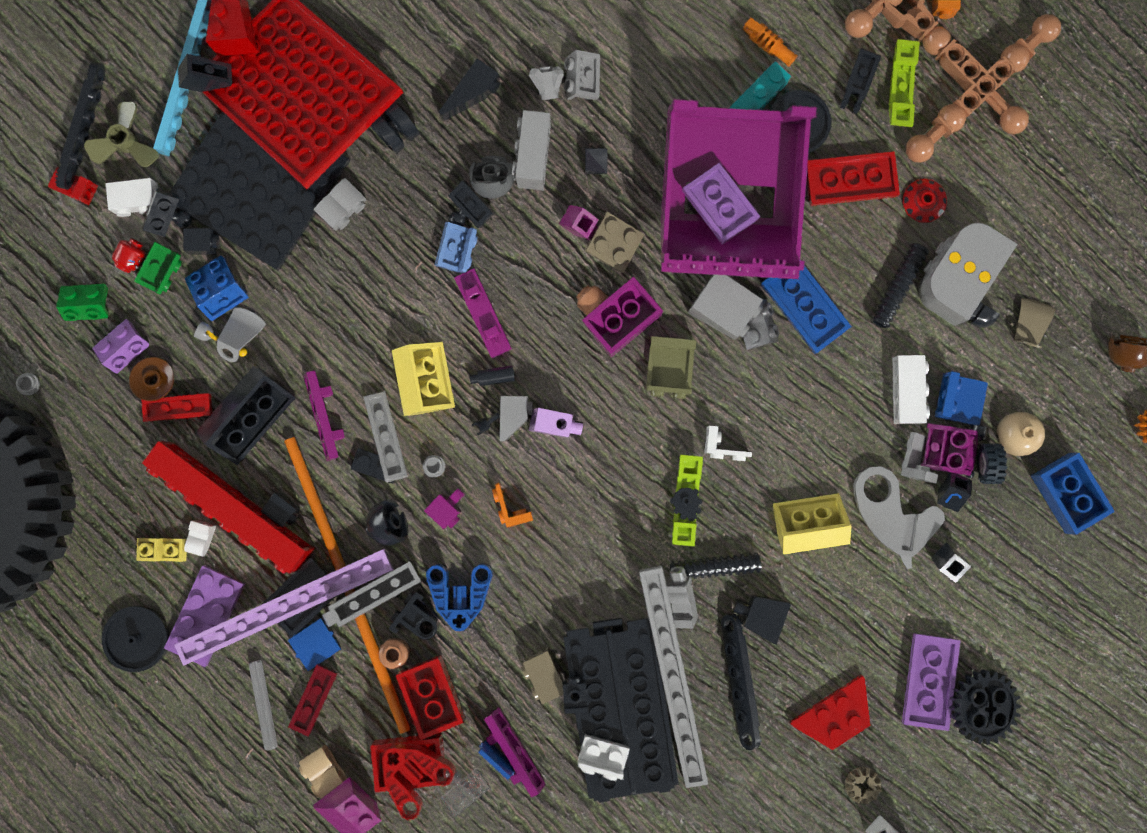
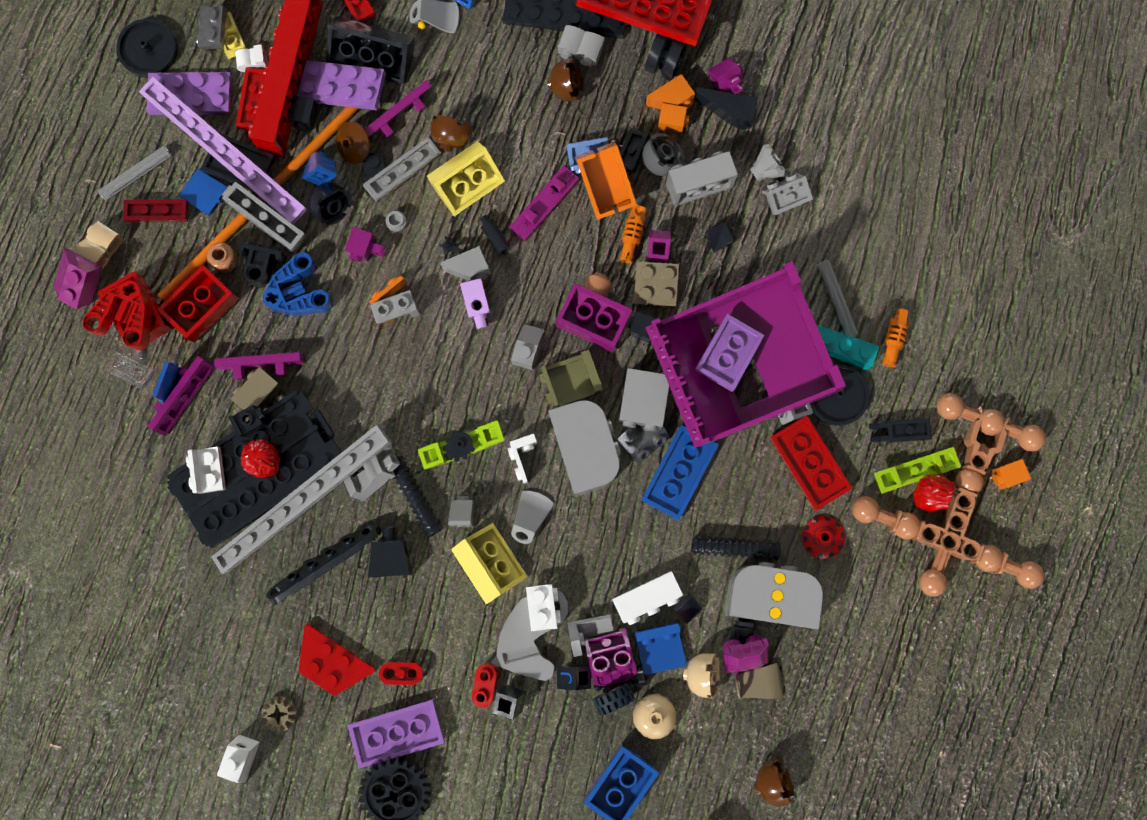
camera: 70 degrees right, 5 degrees down
(148, 563) = (211, 28): none -> flat silver bracket
(240, 555) = (249, 97): none -> red plate
(269, 459) = (342, 84): none -> medium lavender plate
(335, 466) = (353, 142): none -> reddish brown dish
(350, 517) = (319, 169): none -> blue slope
(370, 235) = (566, 80): none -> reddish brown cylinder
(372, 373) = (449, 132): none -> reddish brown cylinder
(434, 139) = (674, 92): none -> orange slope
(440, 77) = (727, 76): none -> magenta brick
(457, 149) = (673, 118): none -> orange brick
(493, 242) = (606, 180): none -> orange piece
(509, 681) = (239, 364): none -> magenta hinge
(524, 505) = (395, 307): none -> light grey bracket
(553, 241) = (632, 232): none -> orange hinge
(619, 393) = (527, 347): none -> light grey slope
(619, 699) = (260, 458): none -> red hair
(650, 274) = (637, 326): none -> black brick
(708, 78) = (837, 298): none -> light grey axle
(745, 381) = (586, 445): none -> light grey brick
(754, 528) = (462, 512): none -> light grey slope
(782, 463) = (530, 514): none -> light grey piece
(877, 491) = (542, 607): none -> white bracket
(878, 653) = (401, 673): none -> red plate
(924, 579) = (485, 686): none -> red plate
(934, 78) = (933, 493): none -> red hair
(936, 356) = (688, 608): none -> black tile
(1004, 371) = (702, 675): none -> tan cylinder
(1008, 324) = (747, 656): none -> magenta slope

